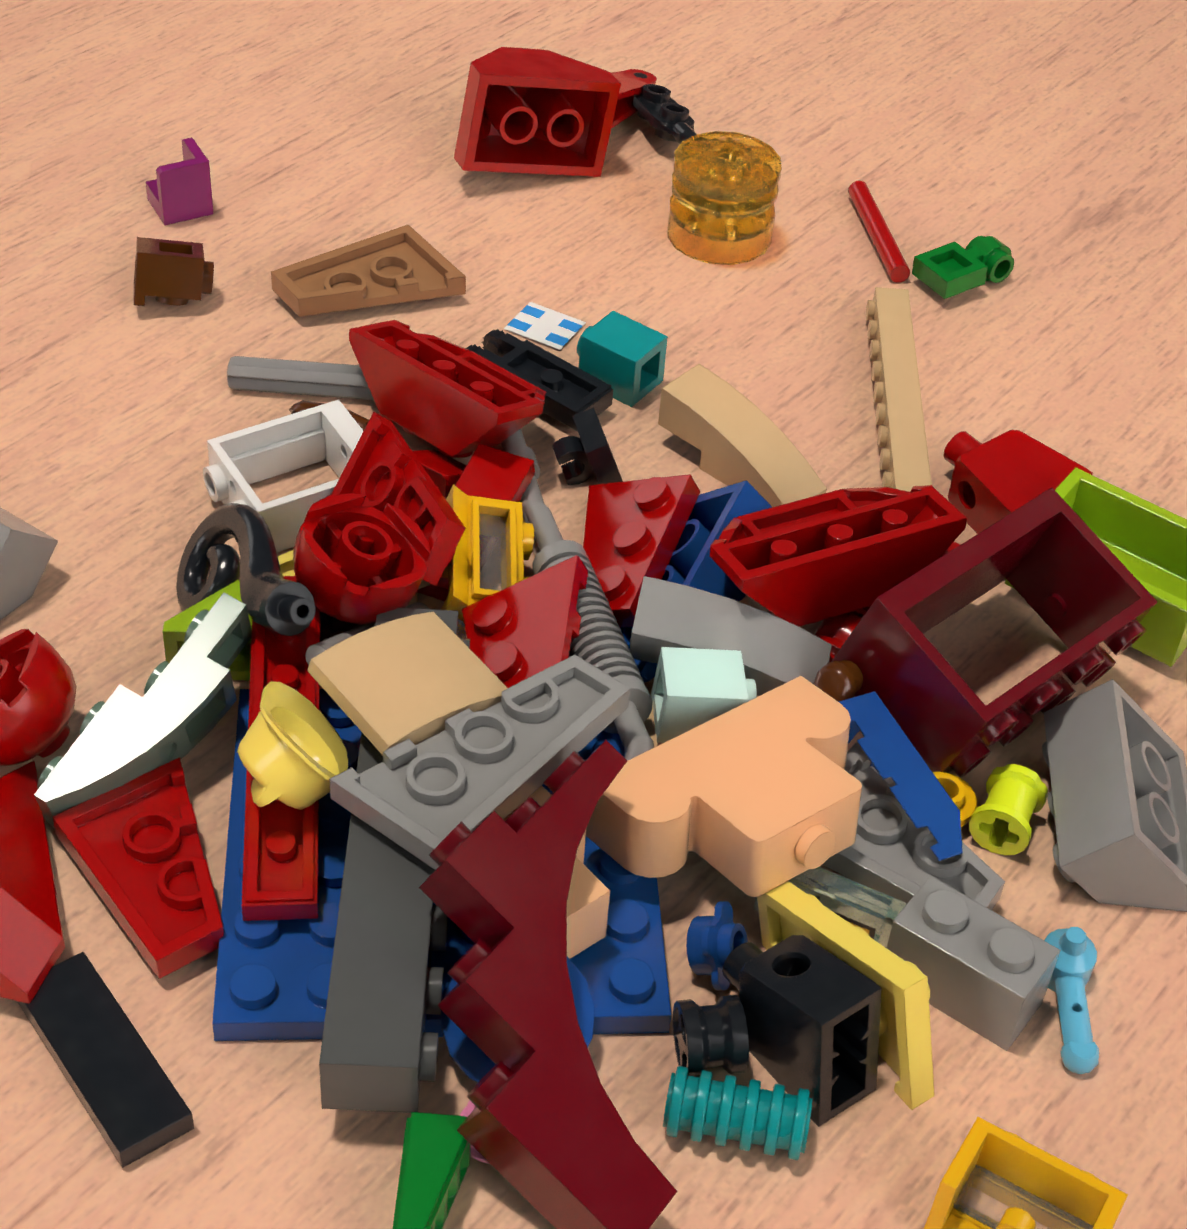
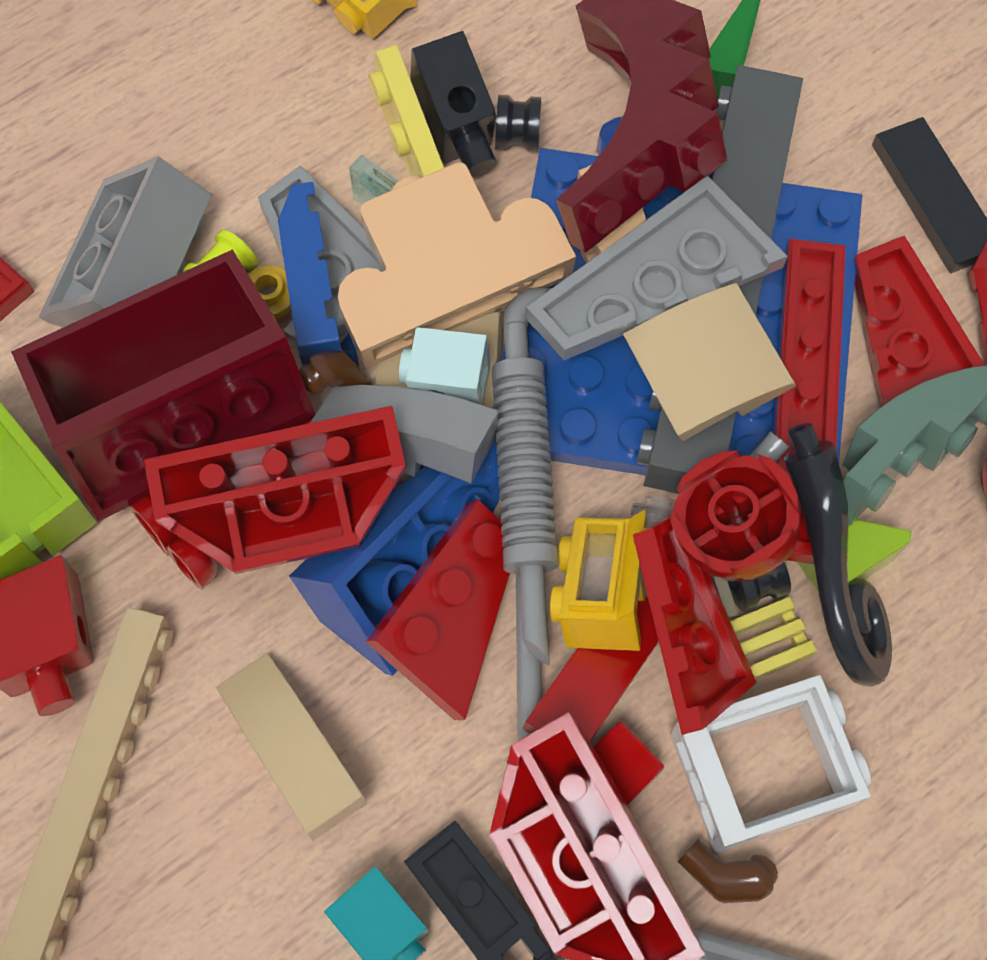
camera: 165 degrees left, 25 degrees up
(291, 750) = (807, 320): light yellow piece -> none
(528, 622) = (592, 441): red wing -> none
(589, 452) = (453, 759): black tile -> none
(711, 941) = (495, 186): blue plate -> none
(738, 1112) = (518, 74): teal piece -> none
(975, 961) = (312, 133): light grey brick -> none
(1069, 982) = (237, 141): medium azure piece -> none

